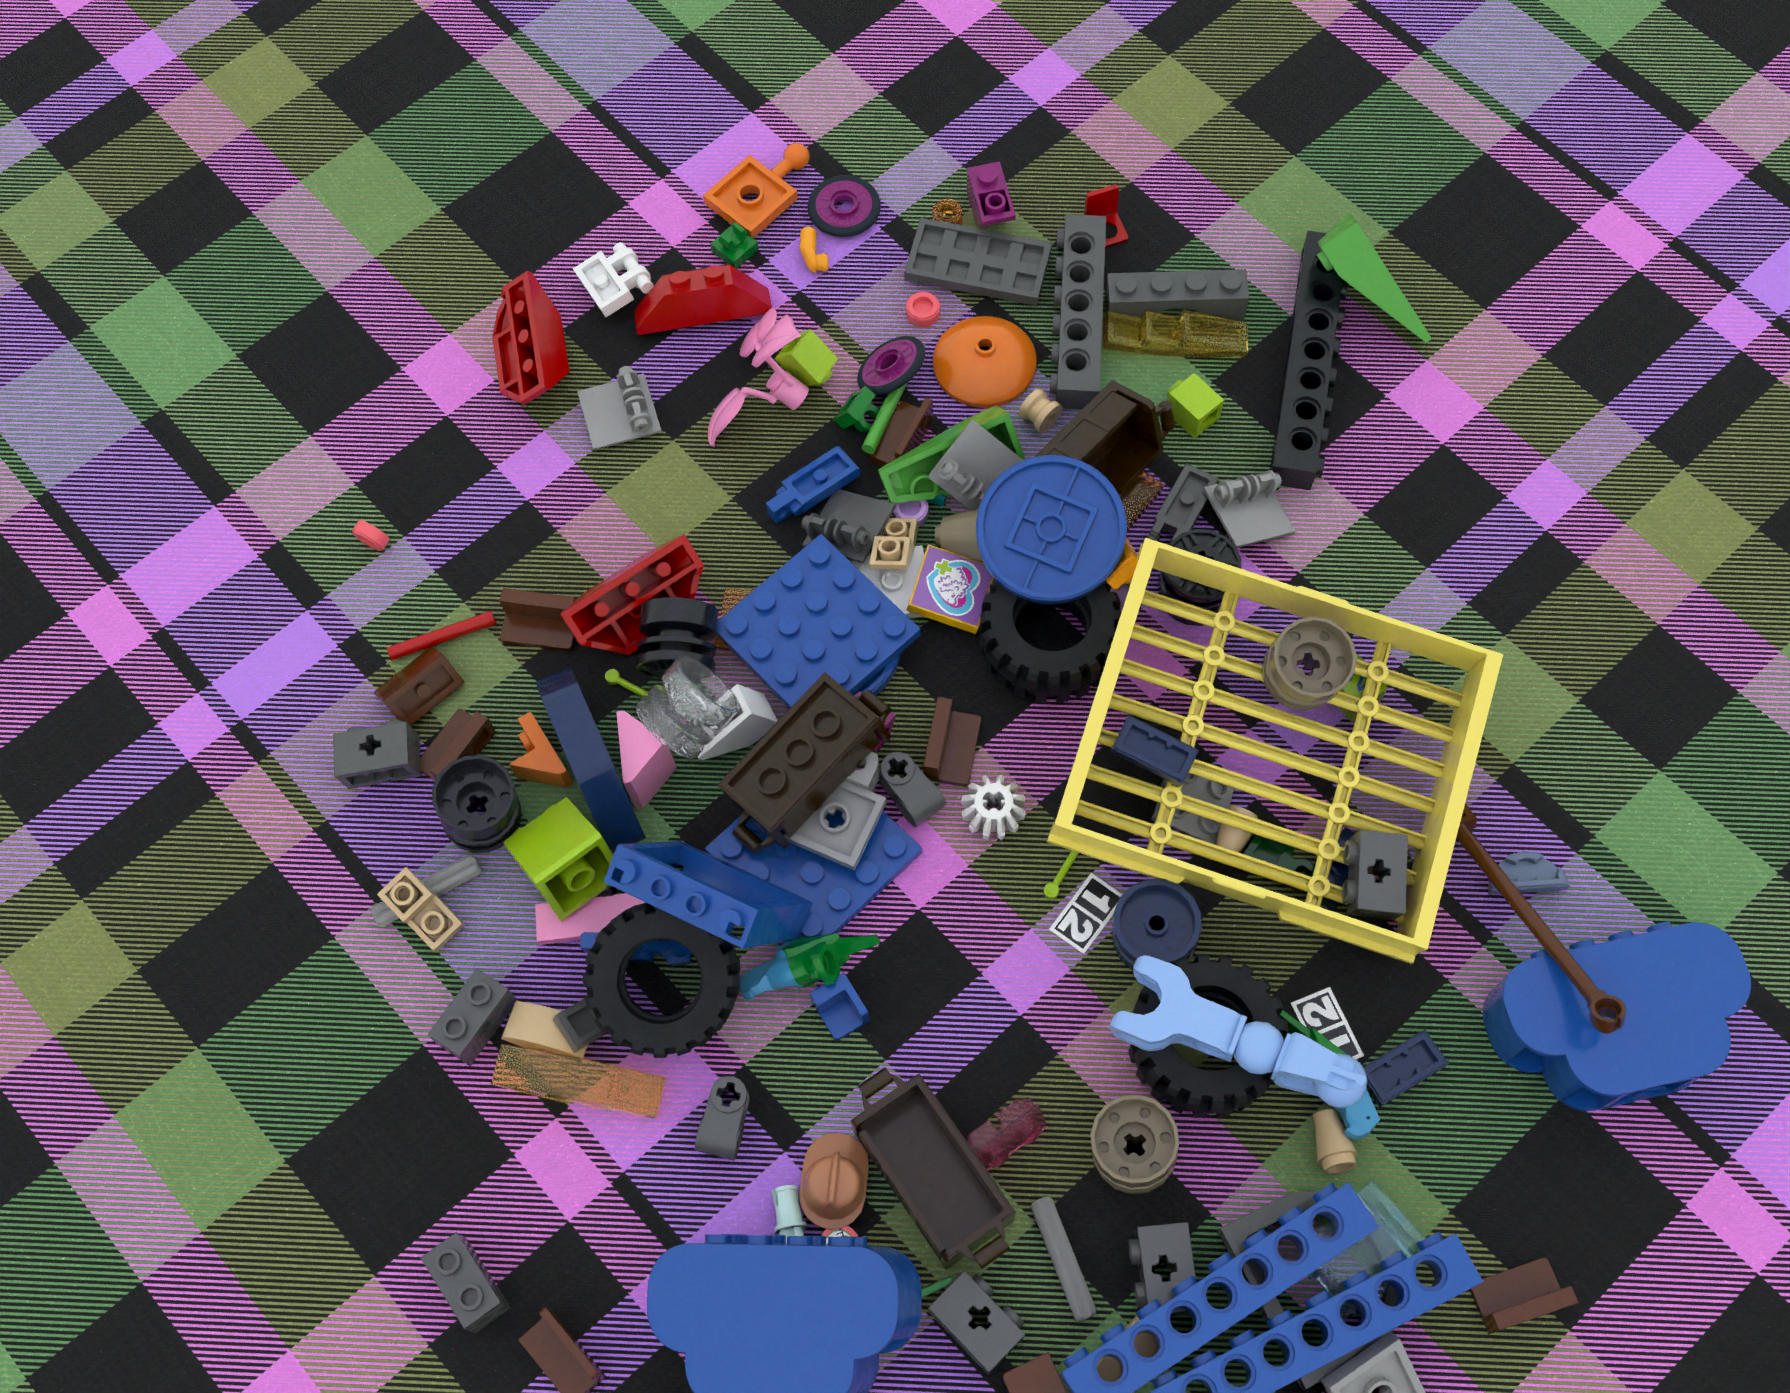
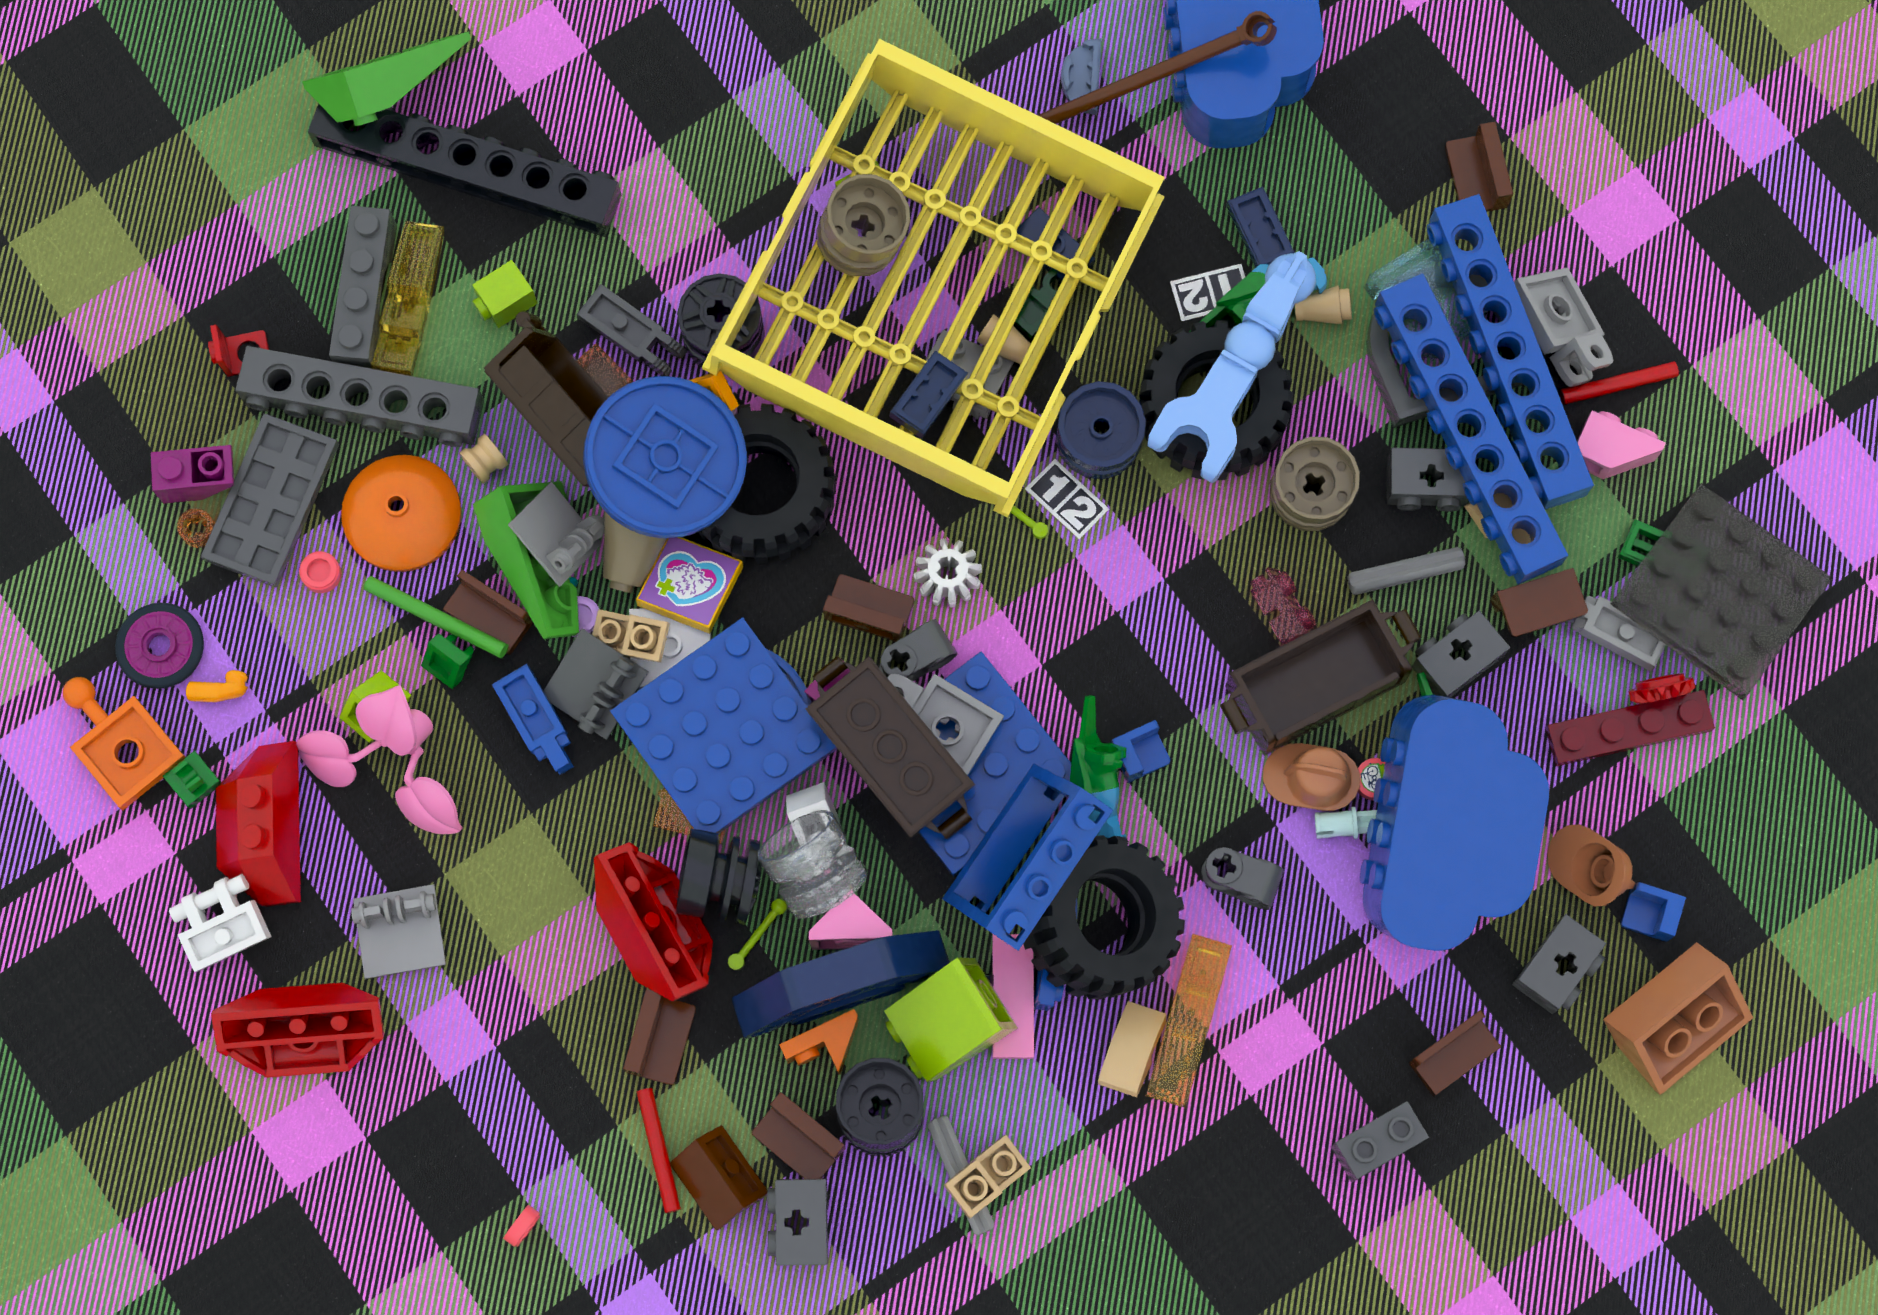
camera: 85 degrees left, 10 degrees up
(473, 1017) = (1111, 1124): dark grey brick -> none
(578, 1025) = (1132, 1012): dark grey tile -> none
(905, 353) = (413, 597): magenta wheel -> none
(1250, 508) = (641, 258): light grey hinge -> none
(1388, 859) = (1097, 205): dark grey brick -> none

